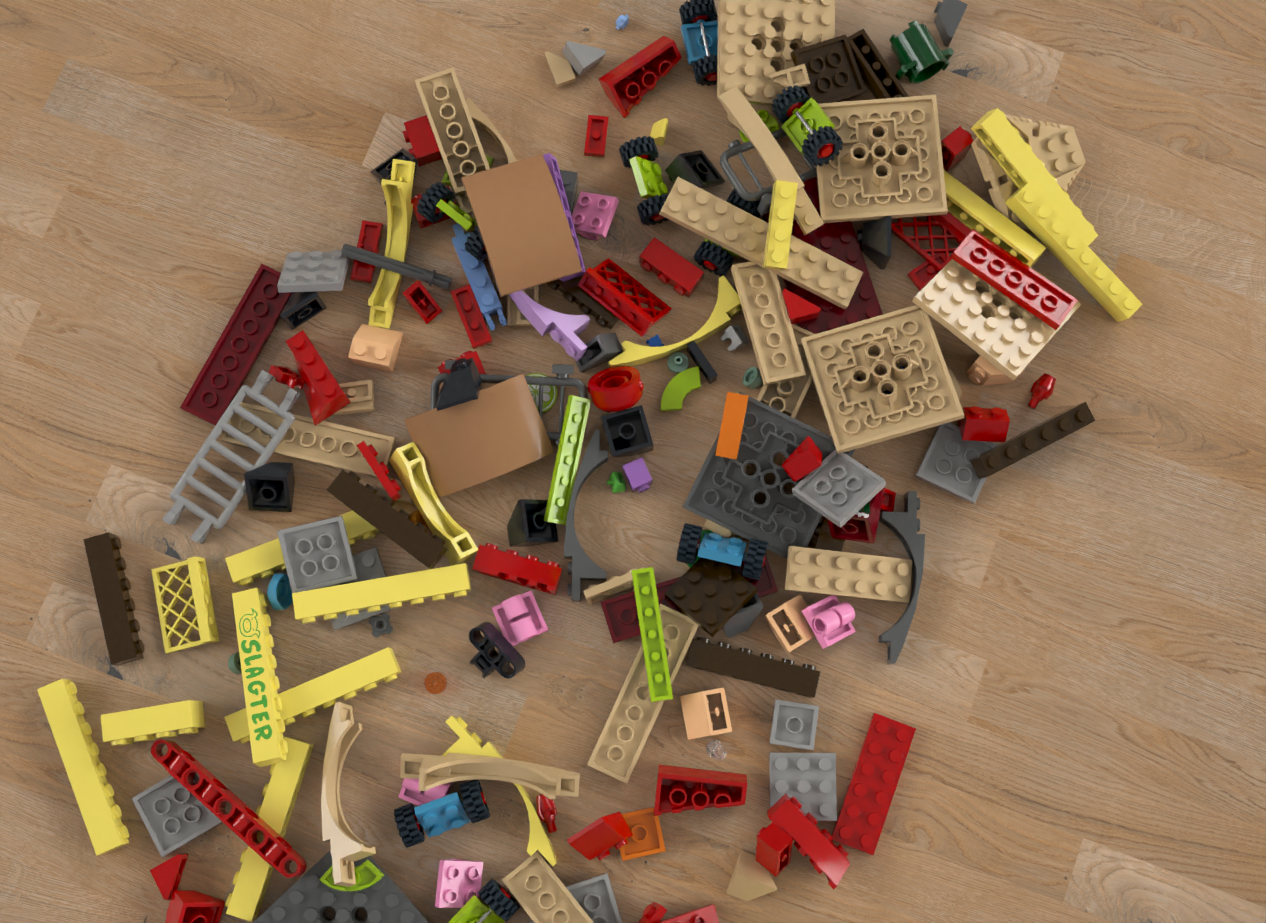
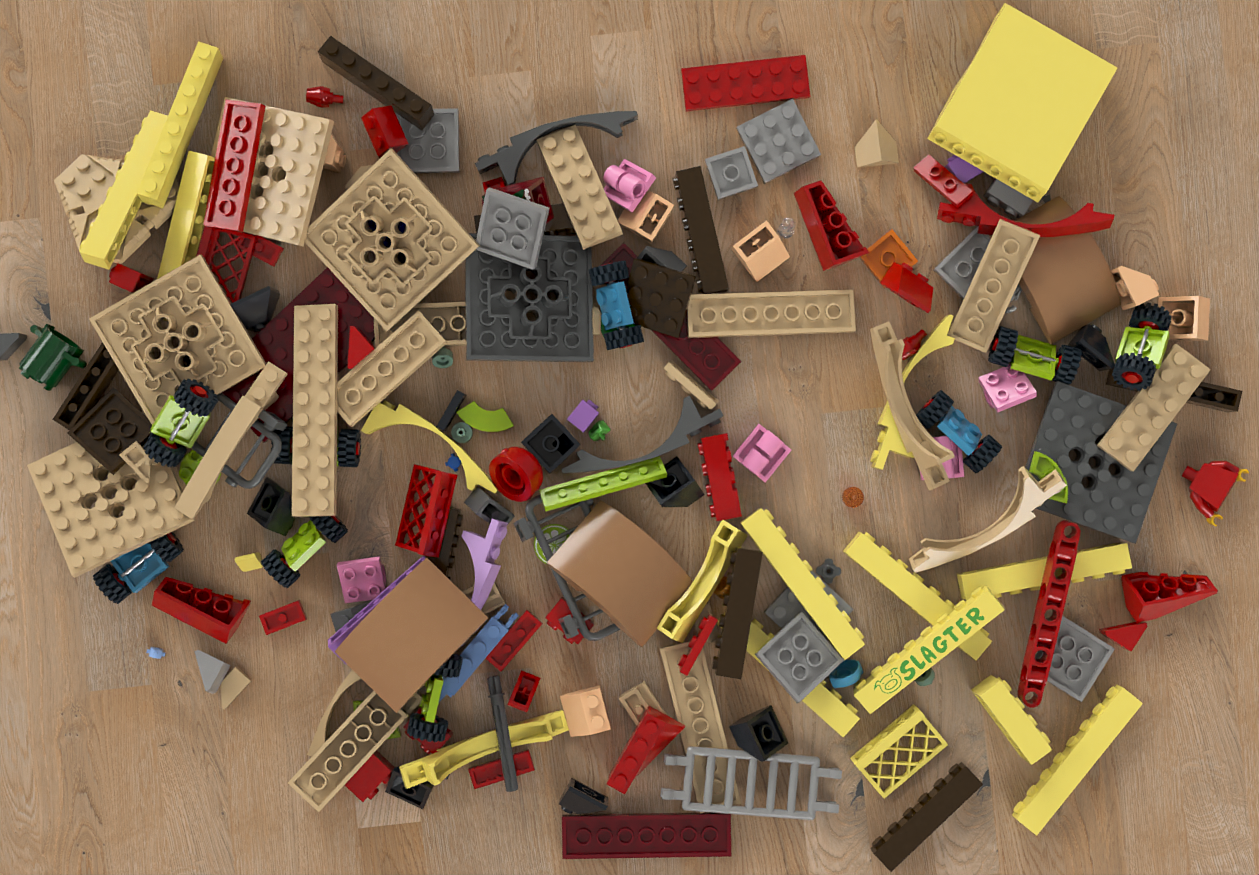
camera: 120 degrees left, 10 degrees up
(286, 376) = (654, 778): red plate -> none
(313, 272) = (547, 805): light grey plate -> none
(460, 384) = (588, 611): black slope -> none
(488, 658) = (809, 460): black piece -> none
(652, 634) = (719, 329): lime plate -> none
(671, 267) = (376, 483): red brick -> none
(731, 425) = (501, 351): orange tile -> none
(737, 337) = (411, 392): light grey tile -> none
(773, 849) = (845, 138): red brick -> none
(780, 225) = (294, 397): light yellow brick -> none
(803, 460) = (500, 271): red slope -> none
(810, 839) = (821, 112): red wedge -> none

